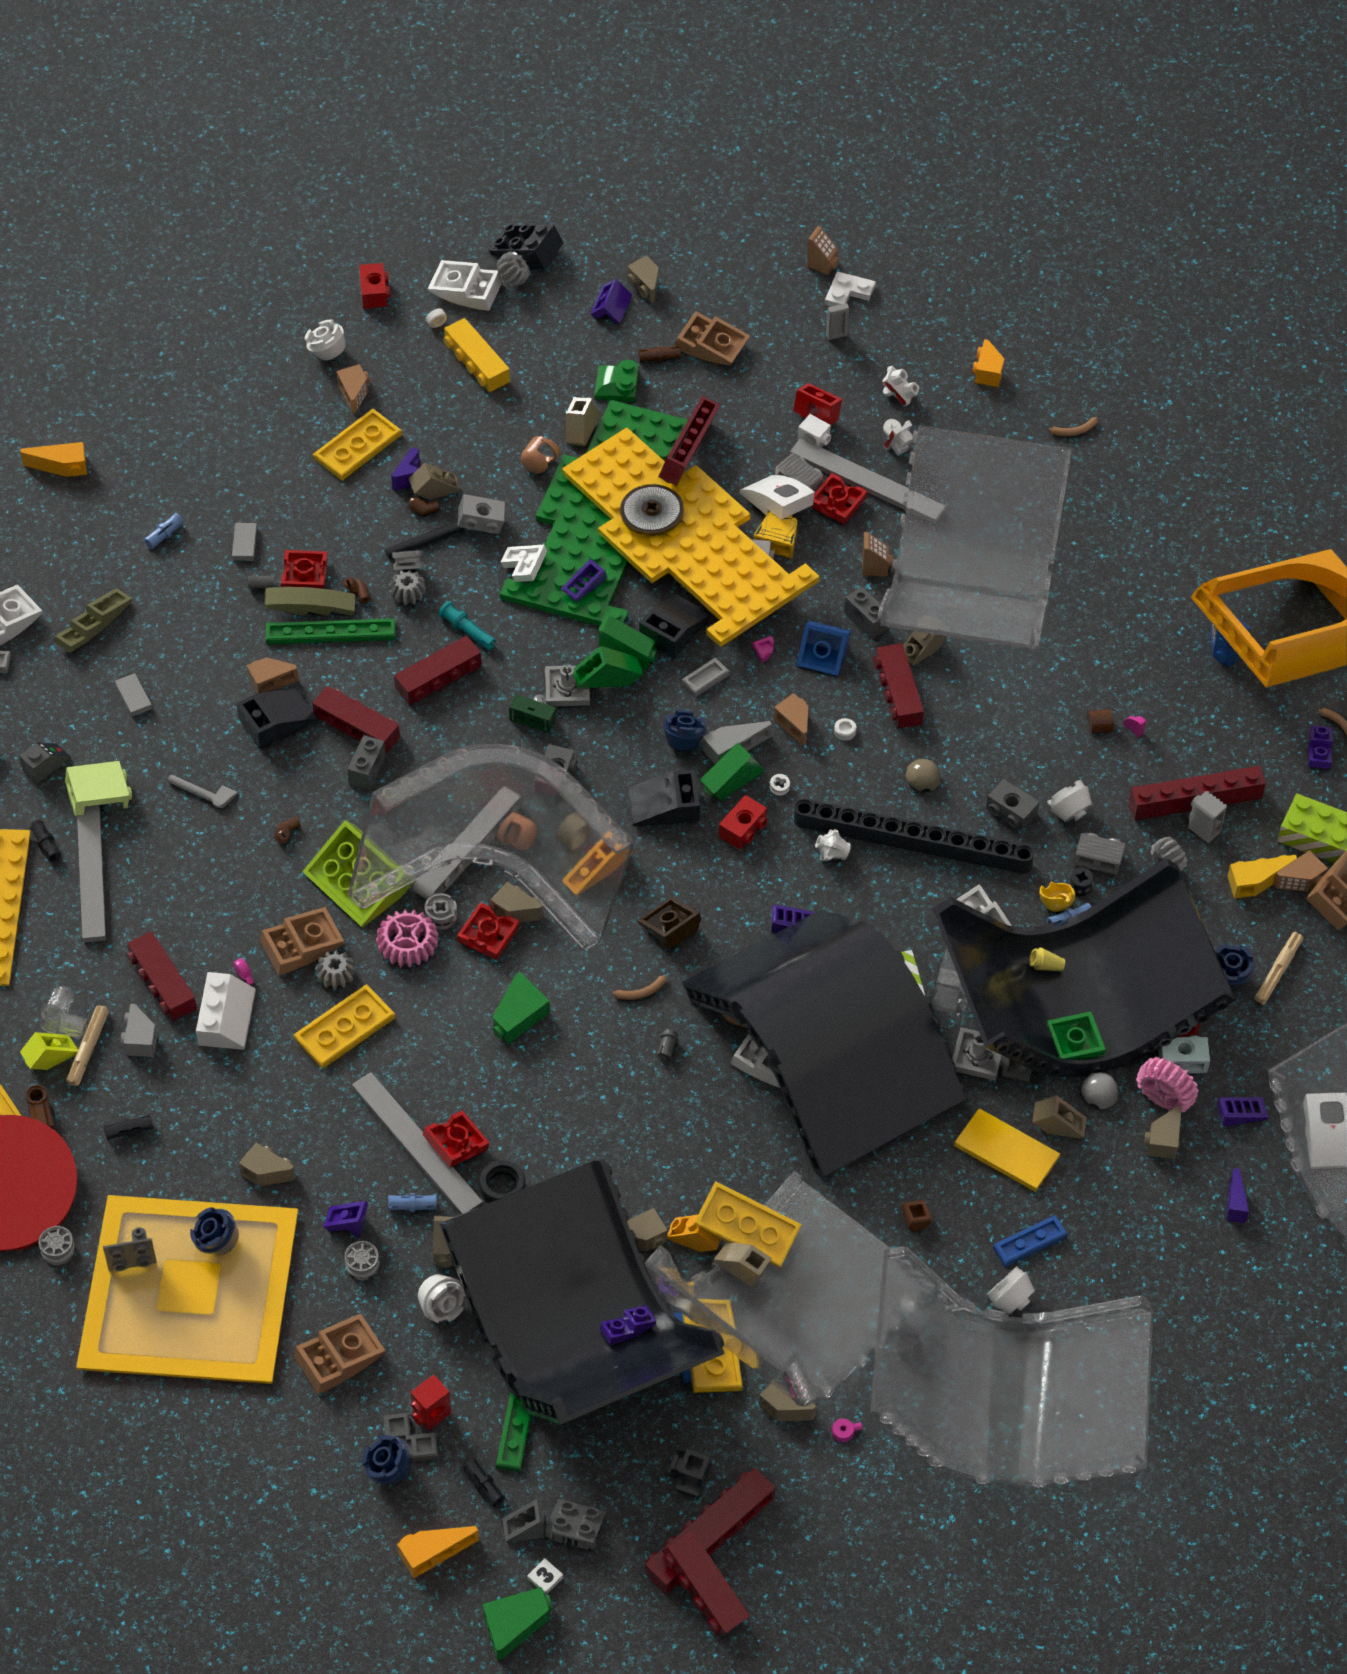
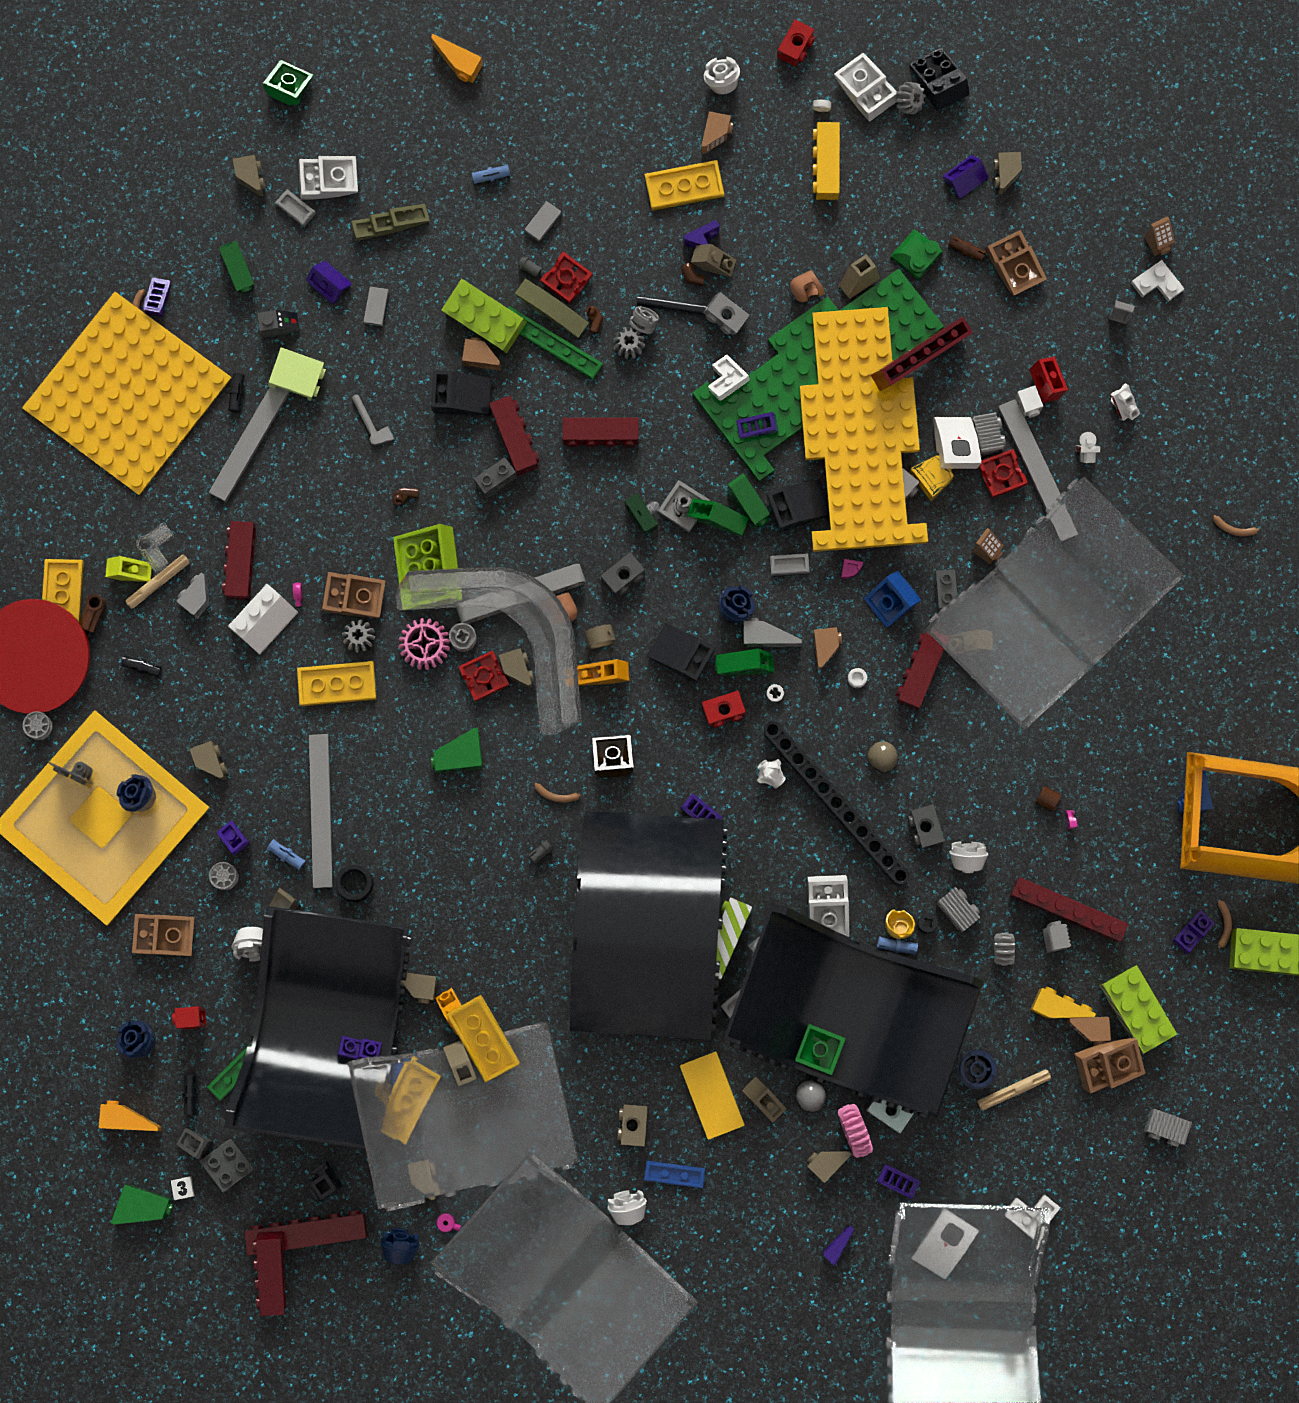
camera: 40 degrees right, 25 degrees up
(68, 701) = (328, 281): none -> dark purple panel
(248, 638) = (484, 315): none -> lime brick
(420, 1446) = (165, 1036): dark grey tile -> none
(455, 1136) = (347, 823): red brick -> none
(460, 621) = (647, 397): teal pin -> none
(652, 496) = (857, 389): piece -> none
(816, 1474) = (399, 1246): none -> dark blue cone
(916, 1215) = (611, 1102): reddish brown brick -> none
(953, 1207) = (638, 1136): none -> dark tan brick
(990, 365) = (1211, 428): light orange slope -> none
(1045, 960) = (849, 971): light yellow cone -> none

